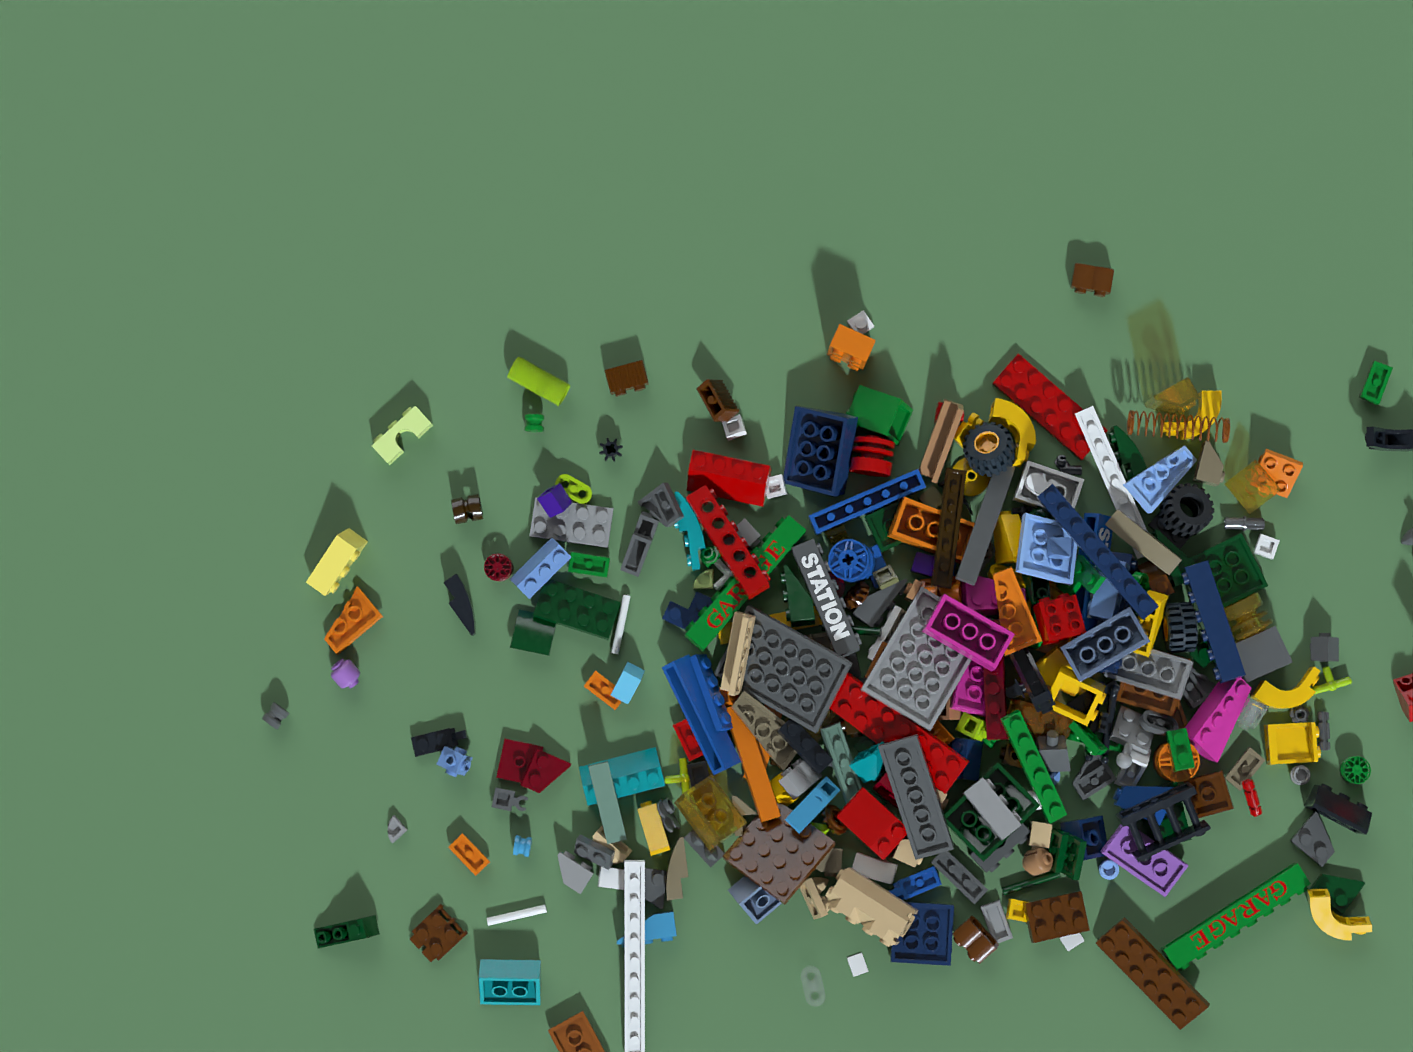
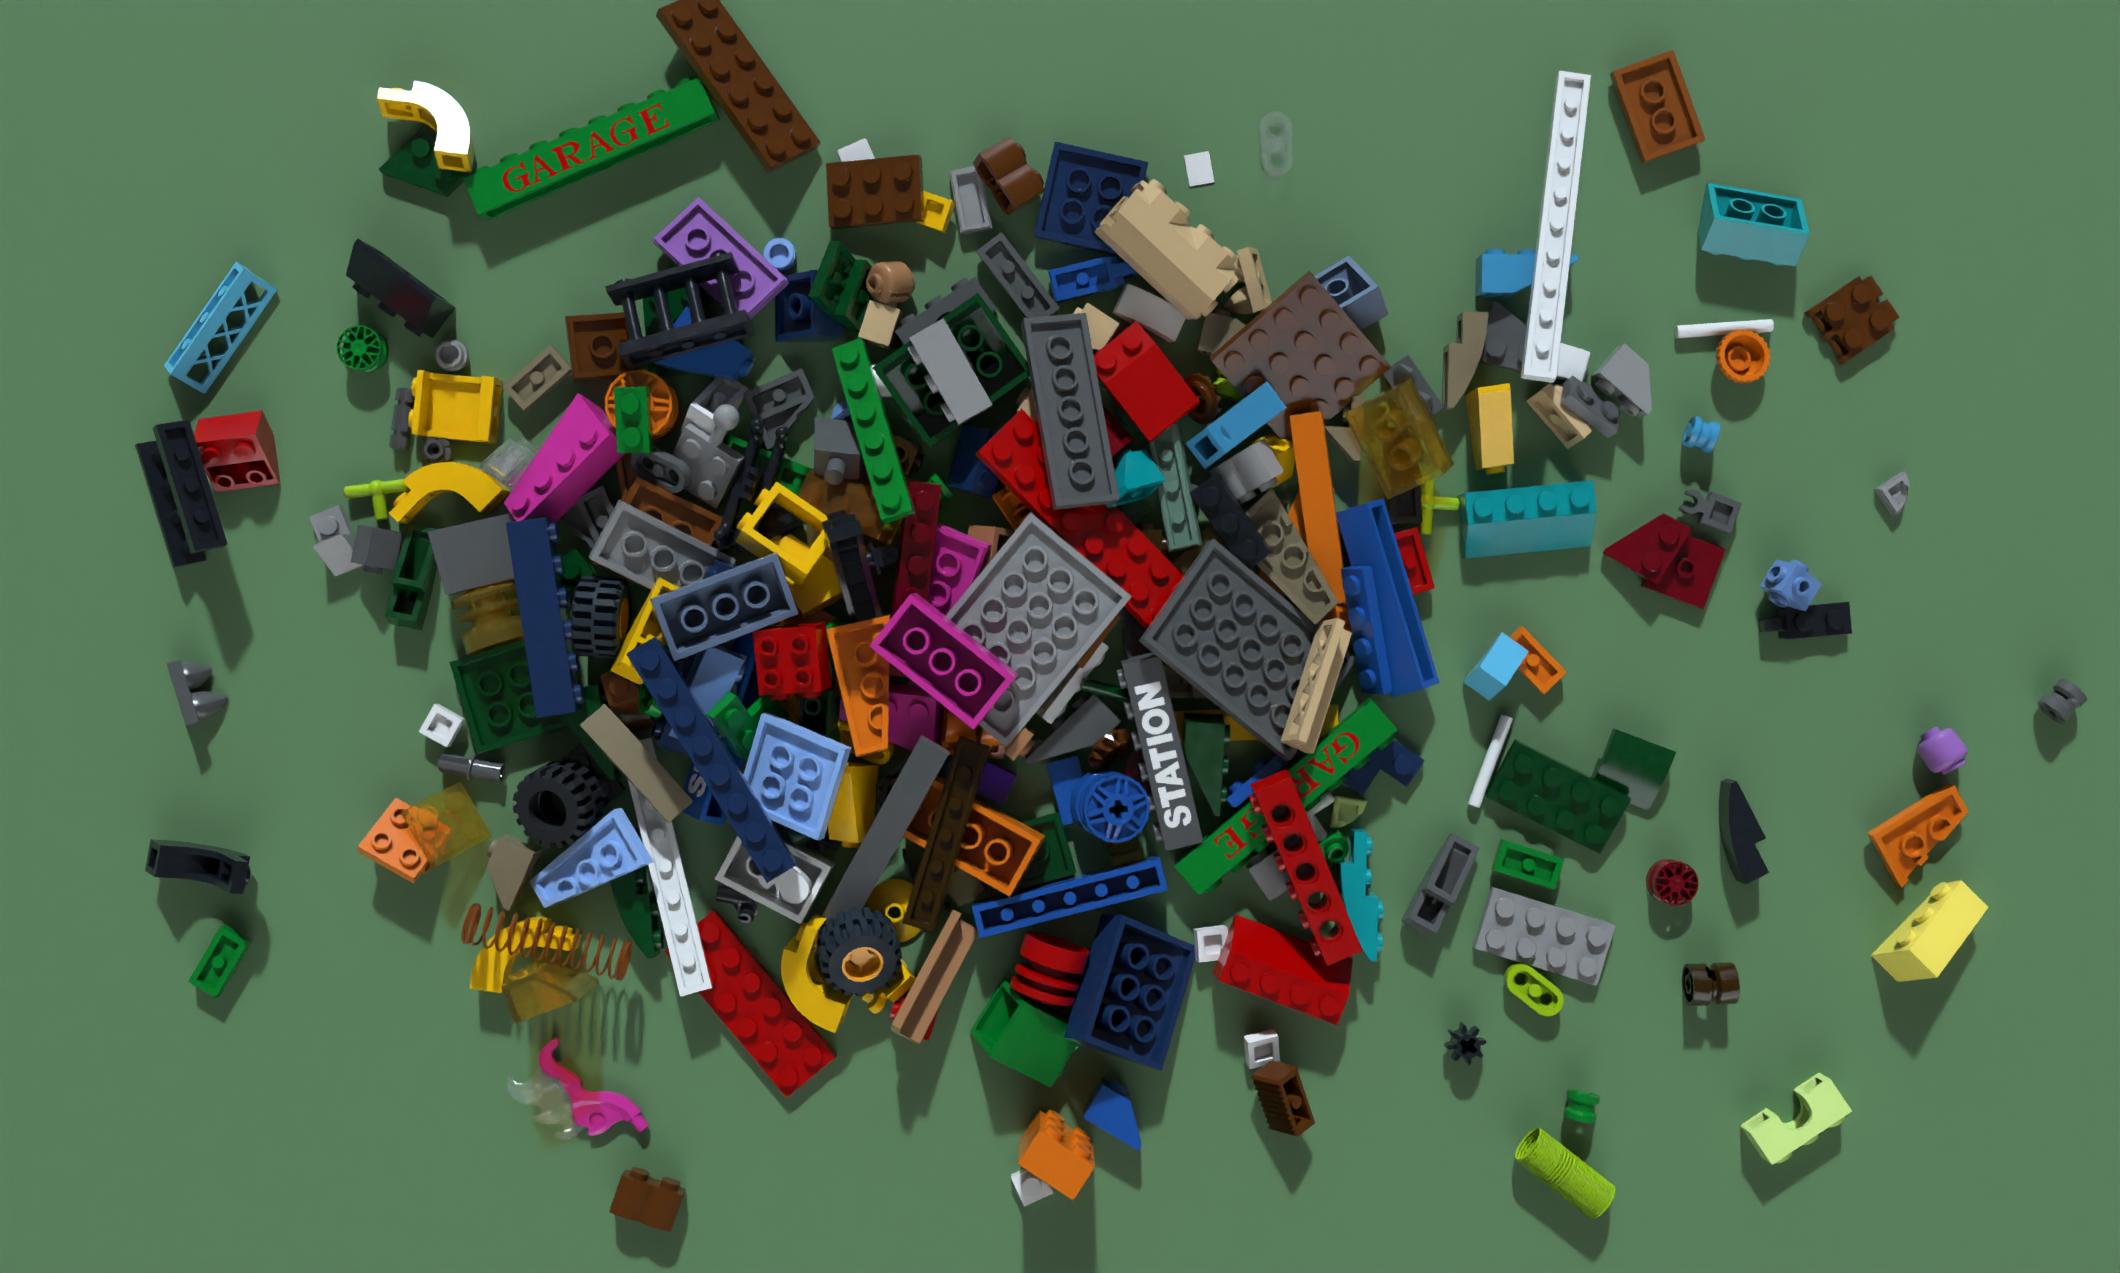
camera: 165 degrees left, 5 degrees up
(346, 931) = (1996, 343): dark green slope -> none
(469, 854) = (1786, 434): orange plate -> none
(504, 898) = (1743, 356): none -> orange hat
(540, 568) = (1608, 871): medium blue brick -> none
(554, 500) = (1569, 976): dark purple panel -> none
(607, 802) = (1563, 479): sand green tile -> none
(626, 378) = (1422, 1155): reddish brown brick -> none
(662, 505) = (1398, 942): dark grey wing -> none
(665, 809) = (1466, 452): dark grey plate -> none
(761, 597) = (1242, 790): none -> blue hinge
(817, 375) = (1113, 1112): none -> blue slope
(885, 577) = (1059, 771): olive tile -> none
(972, 726) = (959, 510): lime brick -> none
(1029, 882) = (909, 253): dark green bar -> none
(1059, 547) = (773, 775): medium blue slope -> none
(1092, 742) = (772, 453): green plate -> none
(1150, 329) = (568, 1103): none -> piece
(1252, 797) = (533, 330): red axle -> none
(1299, 634) = (412, 579): none -> dark green slope
(1314, 840) = (447, 250): dark grey wing -> none
(1351, 650) = (335, 539): none -> light grey slope

